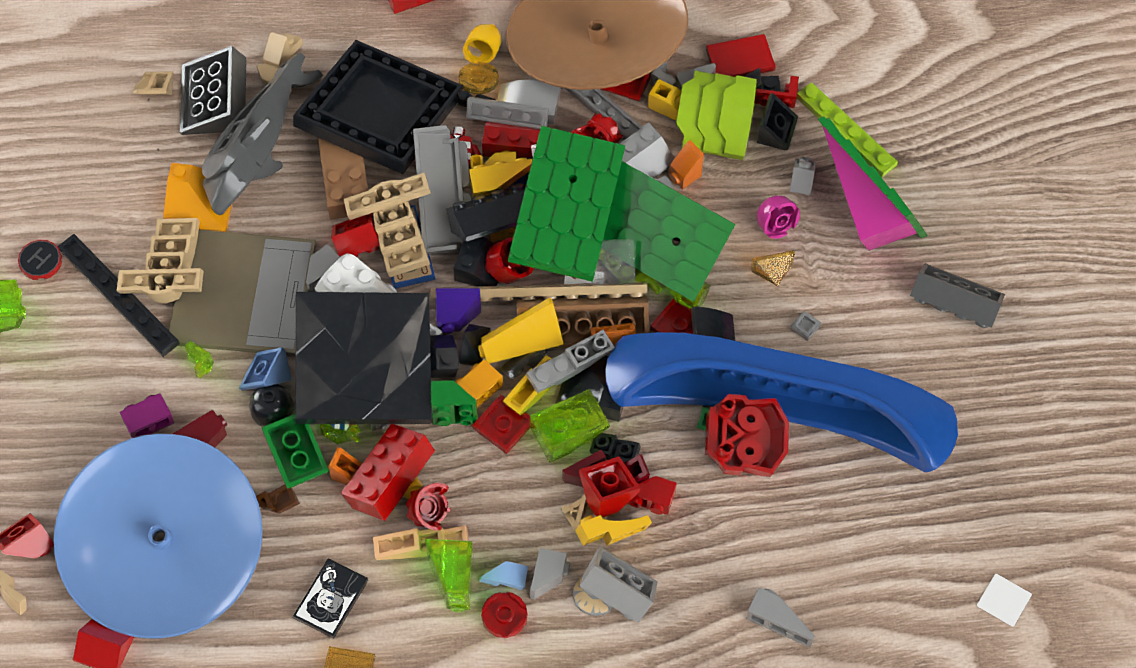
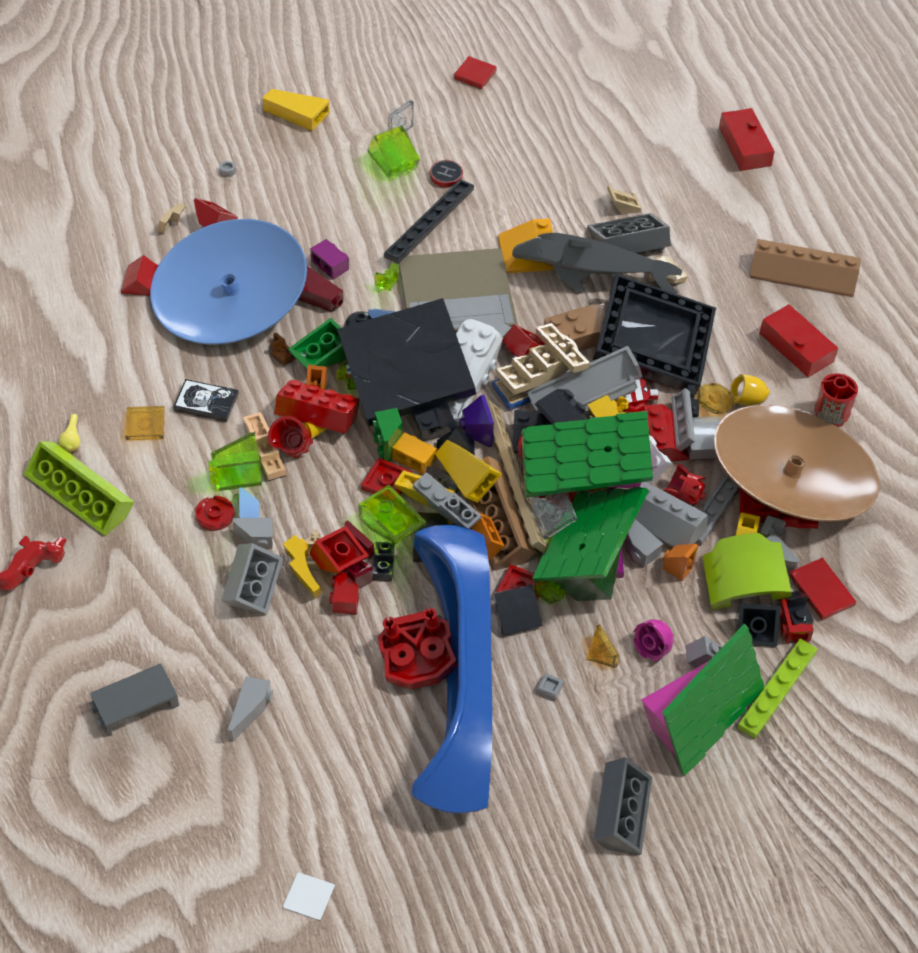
camera: 75 degrees right, 10 degrees down
(167, 264) = (463, 240): tan slope -> none
(281, 48) = (687, 265): tan slope -> none

